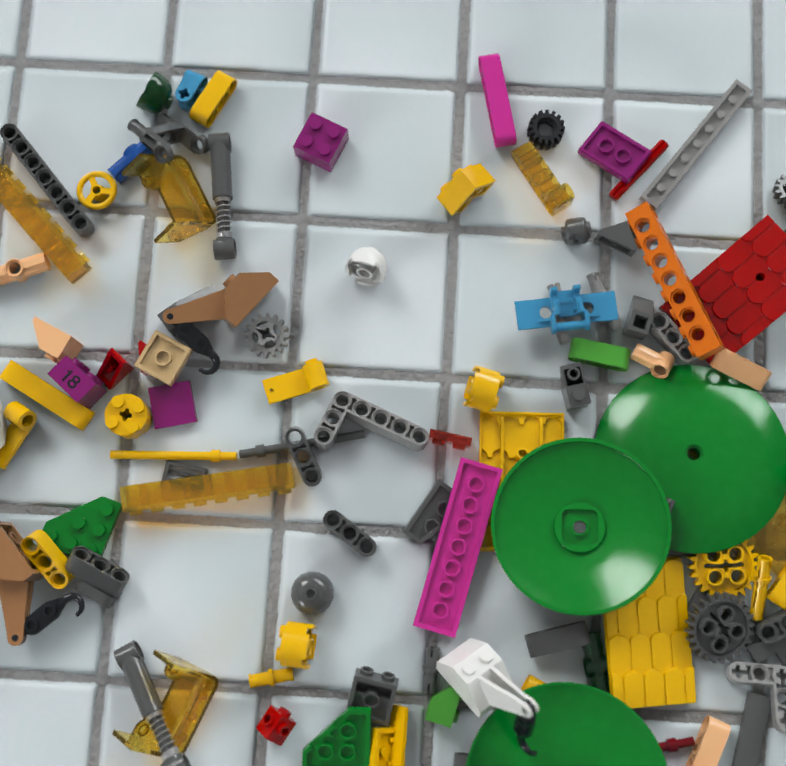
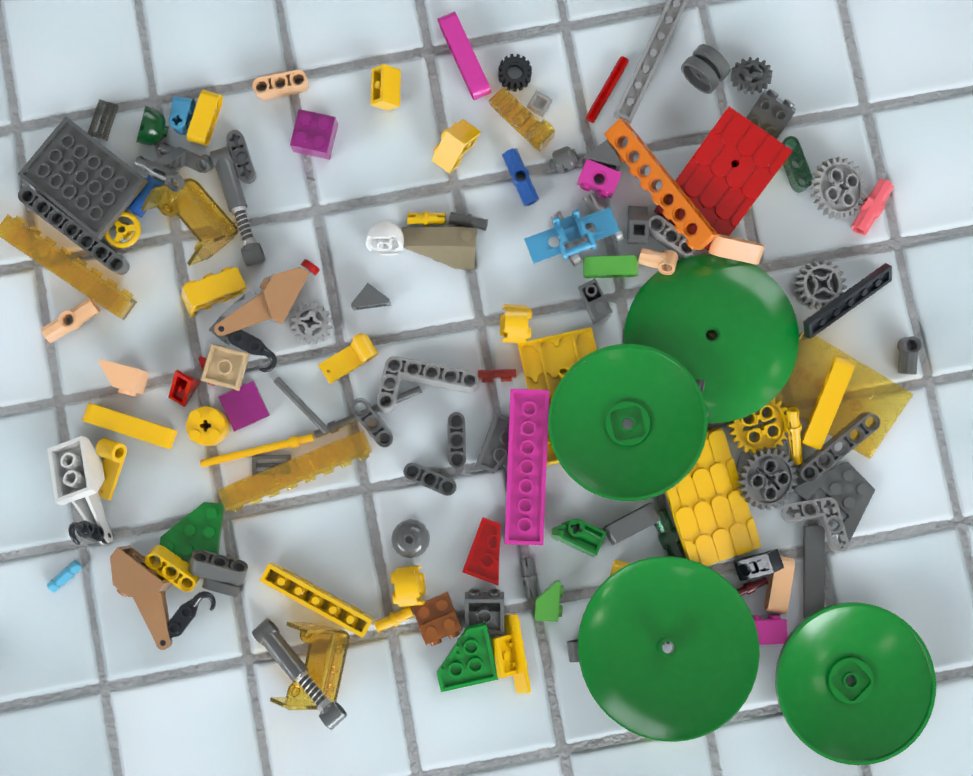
camera: 15 degrees left, 5 degrees up
(72, 129) = (83, 178): none -> dark grey plate
(78, 381) = (153, 407): magenta brick -> none
(112, 78) = (114, 108): none -> clear smoke tile
(172, 275) = (212, 290): none -> yellow wedge
(194, 633) = (316, 599): none -> yellow brick
(233, 420) = (302, 406): none -> dark grey bar
(245, 154) = (240, 171): none -> dark grey beam
(276, 724) = (408, 657): red brick -> none
(281, 276) = (310, 267): none -> red tile
(292, 78) = (272, 82): none -> light nougat beam
(318, 690) = (437, 619): none -> dark orange plate
(335, 325) = (370, 298): none -> dark grey slope
(388, 630) = (485, 553): none -> red wing
(394, 489) = (452, 431): none -> dark grey beam
(407, 112) = (385, 87): none -> yellow brick
(416, 256) = (426, 218): none -> yellow pin
(429, 288) = (443, 244): none -> dark tan wedge
(459, 270) = (468, 221): none -> dark grey pin
(484, 683) = (577, 577): white slope -> none
(504, 642) = (586, 540): none -> green piece
(524, 226) = (525, 187): none -> blue piece
(563, 167) = (539, 103): none -> light grey tile
(614, 152) = (581, 78): magenta tile -> none
(620, 259) = (609, 176): none -> dark pink brick
(689, 722) = (758, 565): none -> black brick
(749, 172) = (705, 68): none -> dark grey wheel

